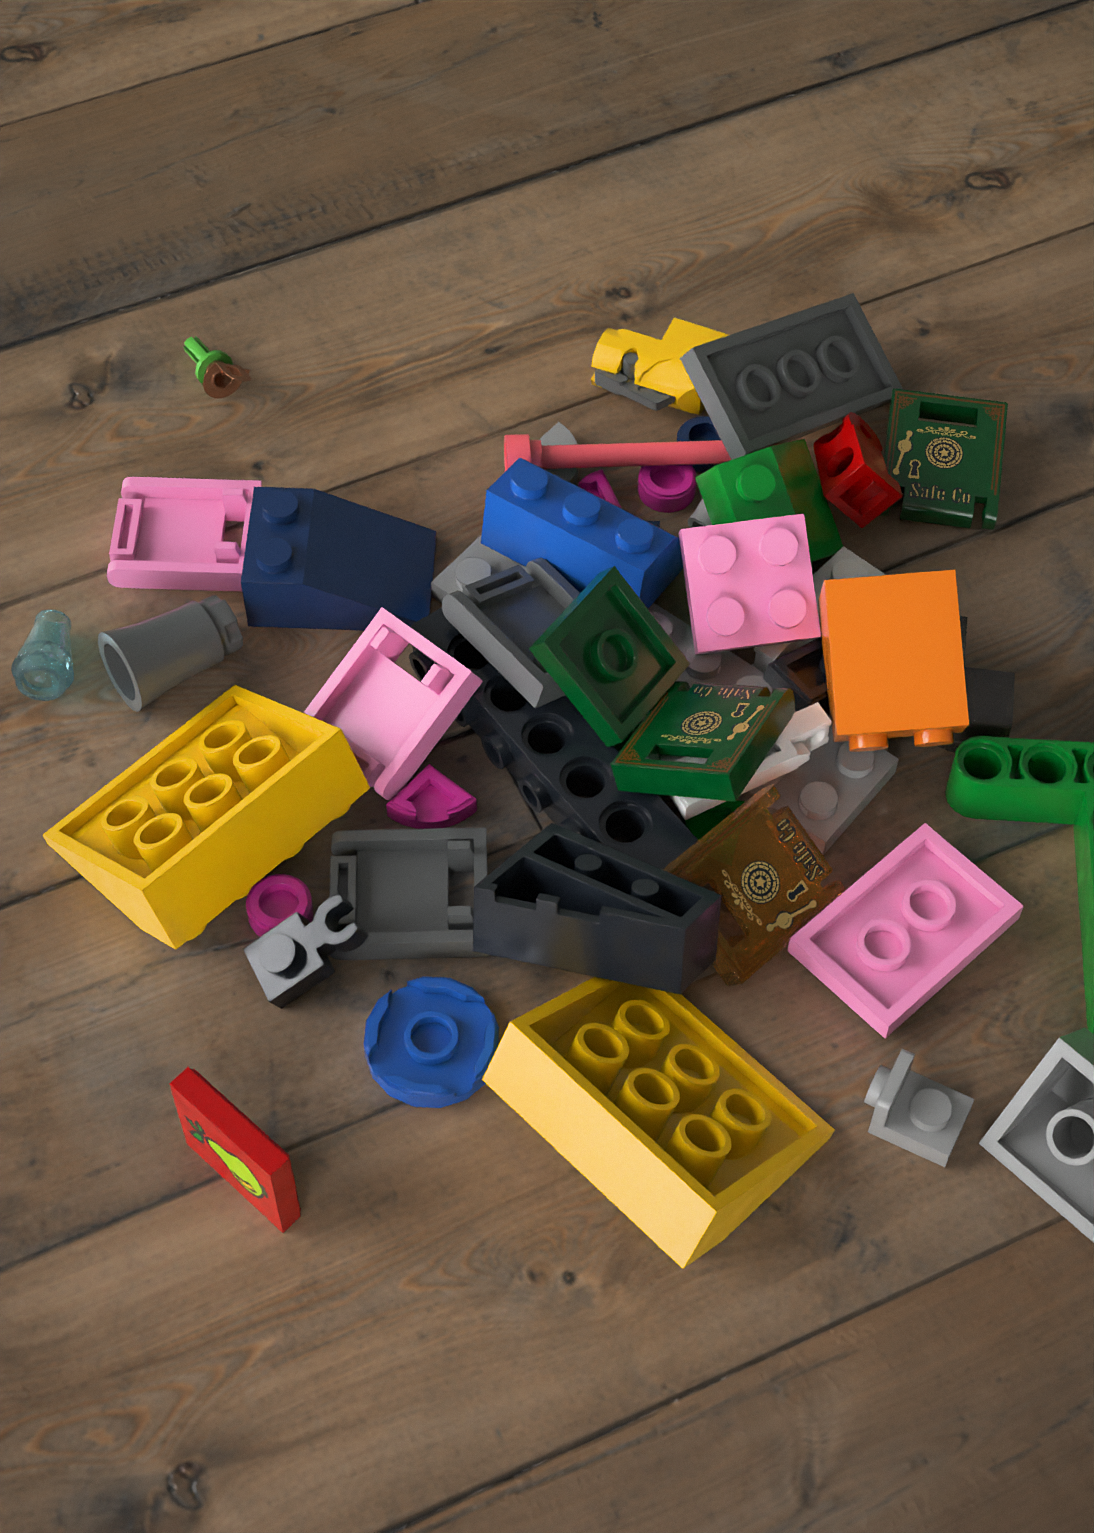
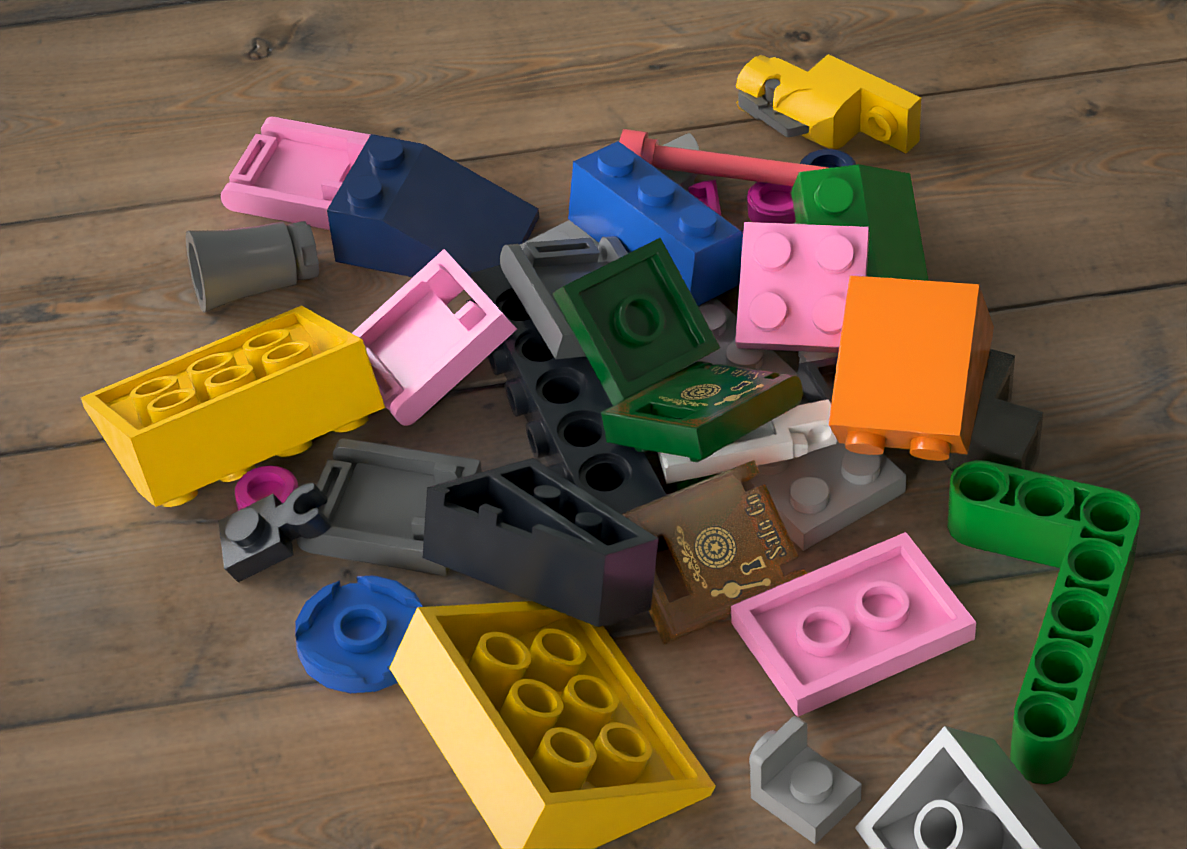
camera: 20 degrees right, 10 degrees down
(45, 659) = (137, 253): clear light blue cone -> none
(215, 369) = (387, 43): piece -> none
(236, 1148) = (137, 672): red tile -> none
(431, 802) = (442, 432): dark pink tile -> none
(791, 376) = (924, 116): dark grey plate -> none
(855, 471) = (956, 215): red leg -> none
(945, 465) = (1058, 219): dark green container -> none

